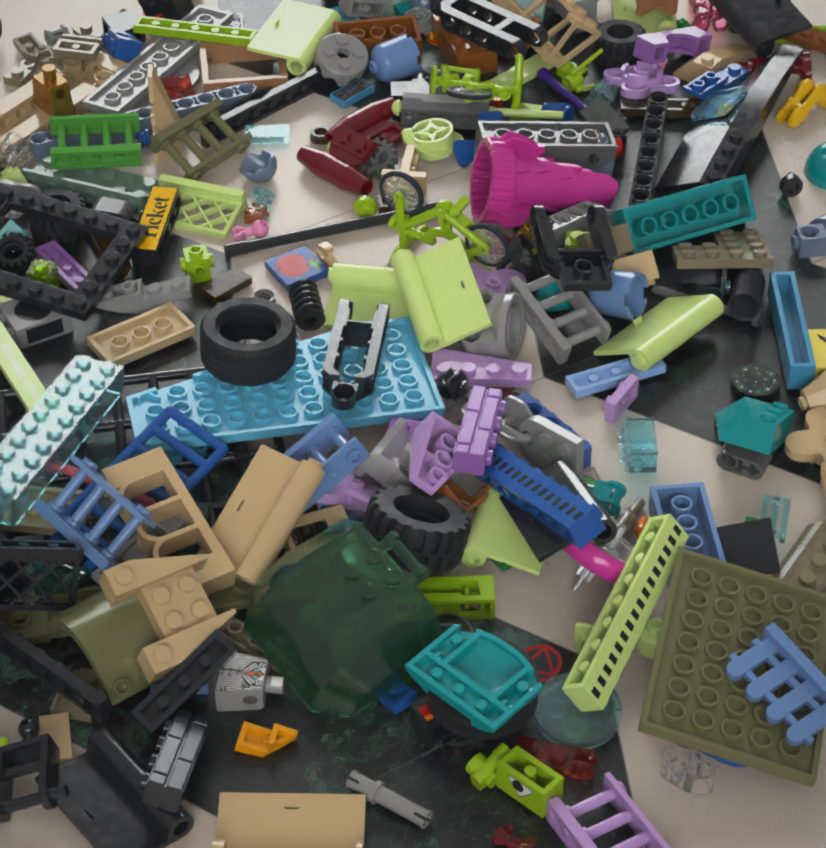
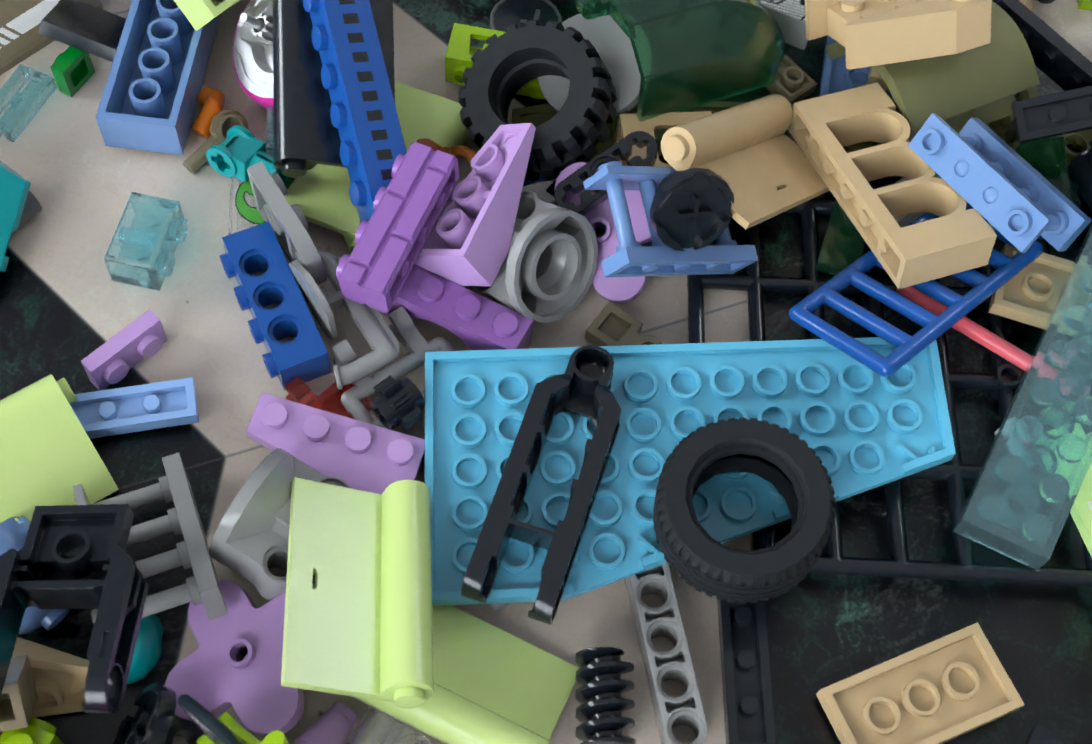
camera: 175 degrees left, 20 degrees up
(301, 439) = (691, 208): none -> black tile
(356, 492) = (624, 149): none -> black beam

